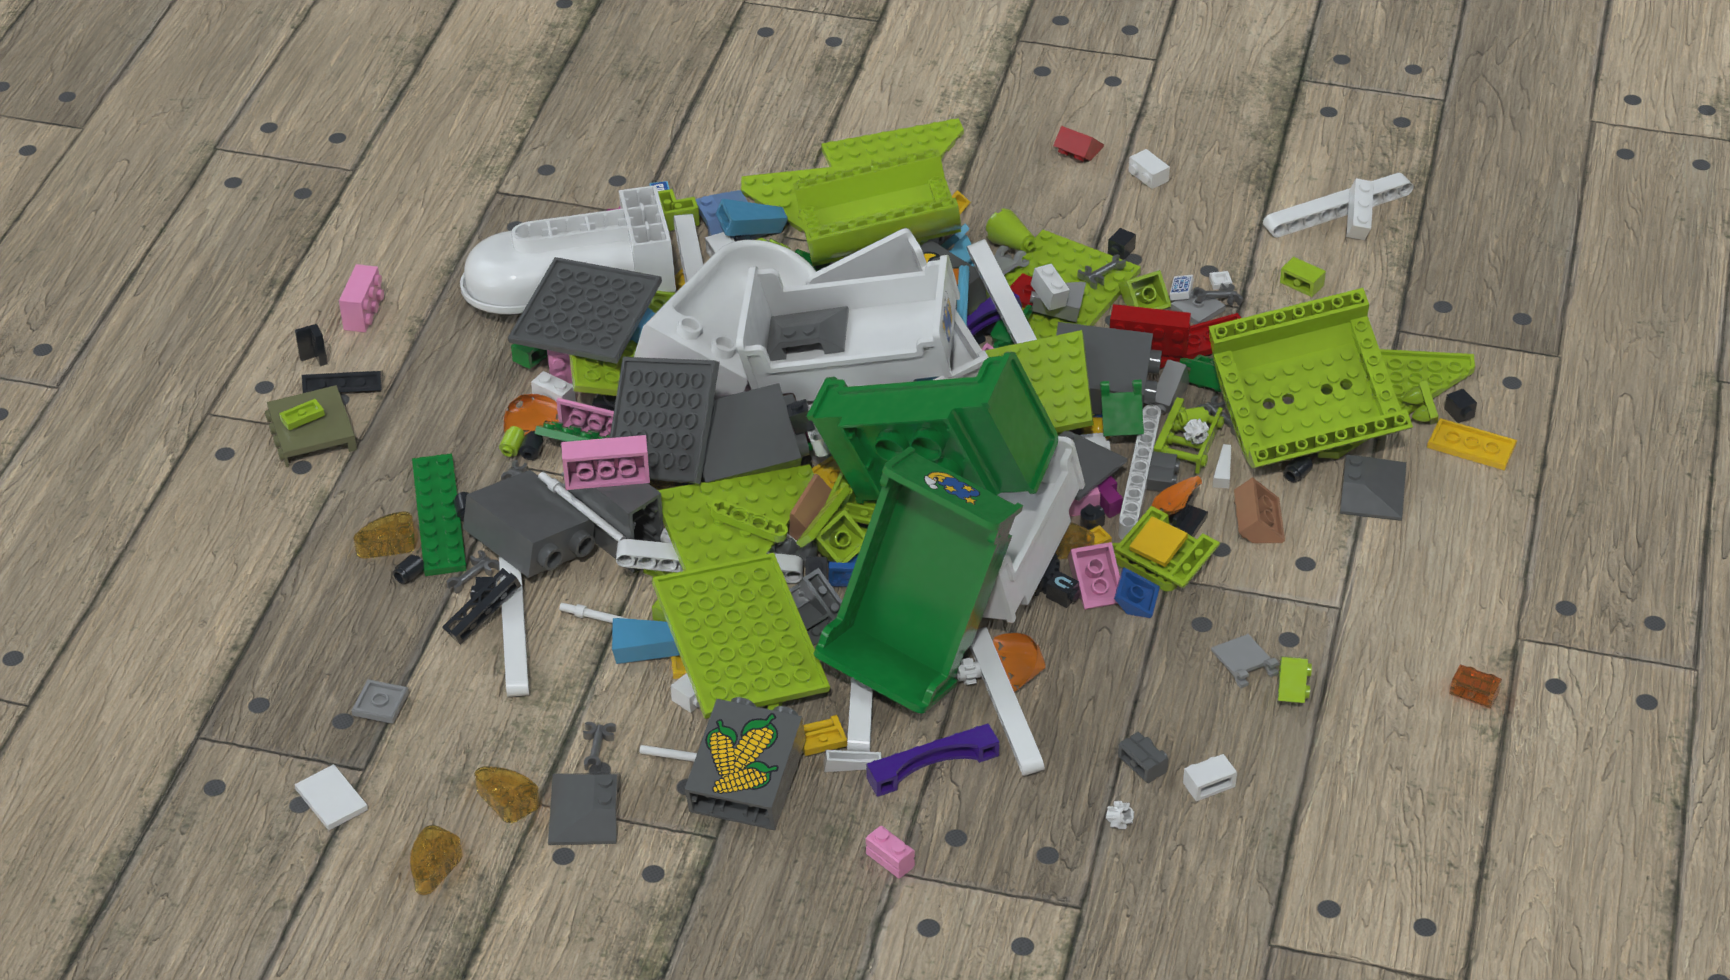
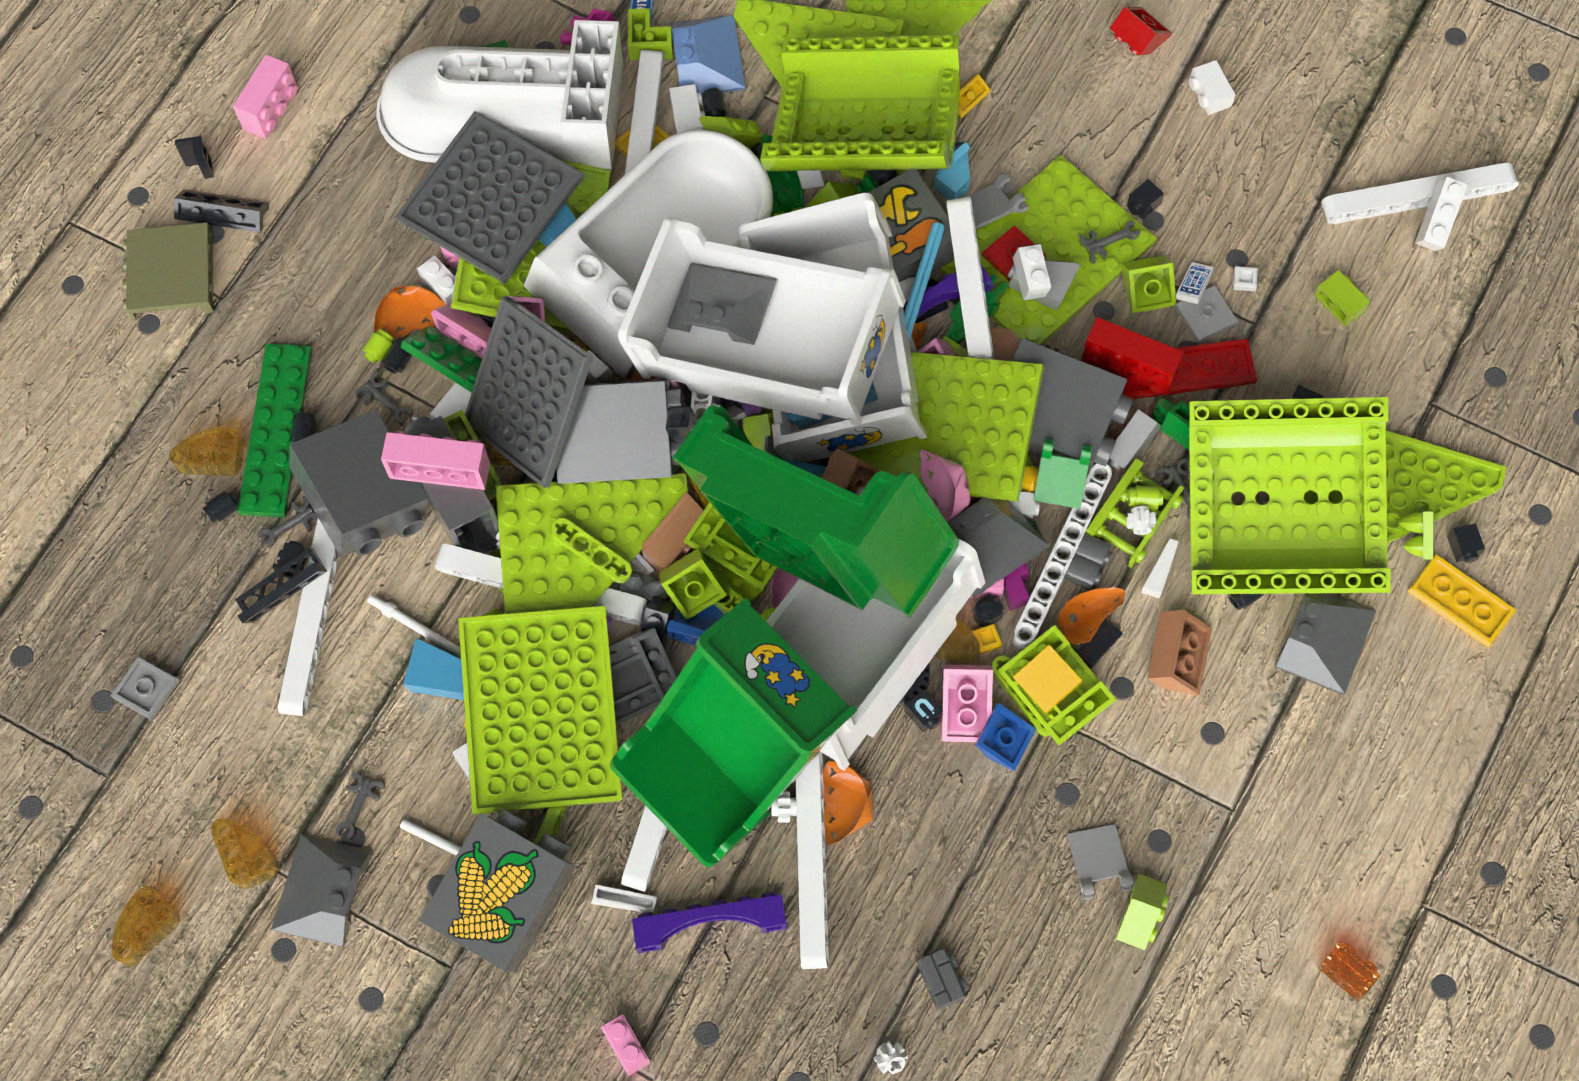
camera: 15 degrees right, 25 degrees up
(302, 414) = (156, 262): lime plate -> none
(331, 797) = (62, 808): white tile -> none
(556, 487) = (424, 500): white bar -> none
(750, 218) = (726, 72): dark azure slope -> none
(823, 516) = (679, 557): lime tile -> none
(824, 736) = (599, 862): yellow plate -> none
(1008, 230) = (1018, 158): lime cone -> none
(1209, 777) = (1006, 1027): white brick -> none
(1224, 292) = (1246, 302): flat silver bar -> none

